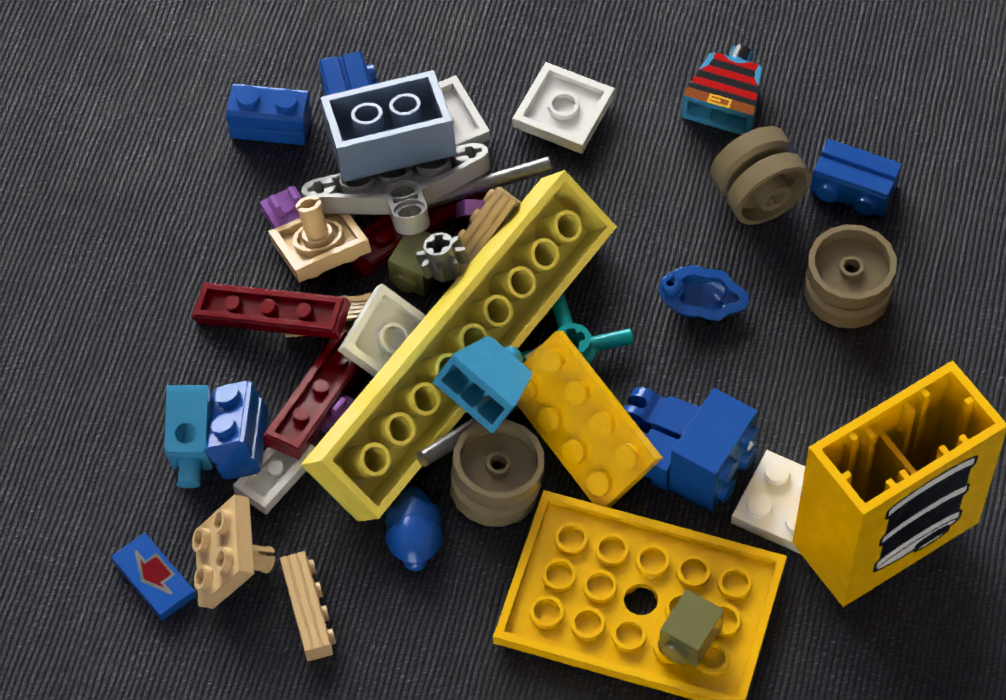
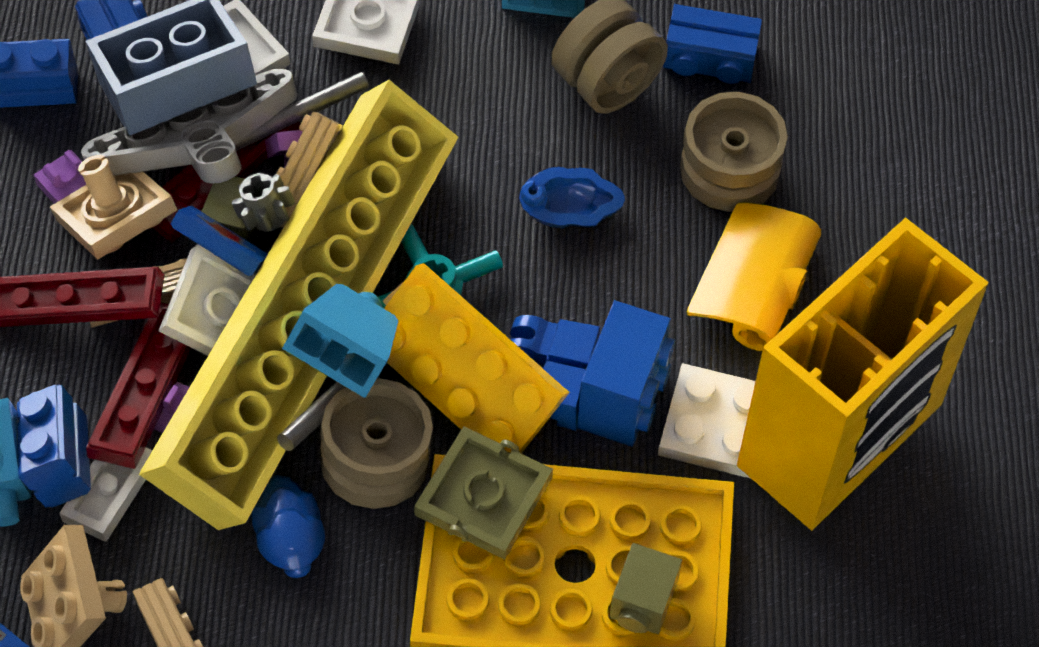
camera: 15 degrees left, 0 degrees up
(400, 282) = (219, 240): none -> blue tile
(576, 527) = (483, 492): none -> olive plate
(847, 378) = (756, 271): none -> yellow panel

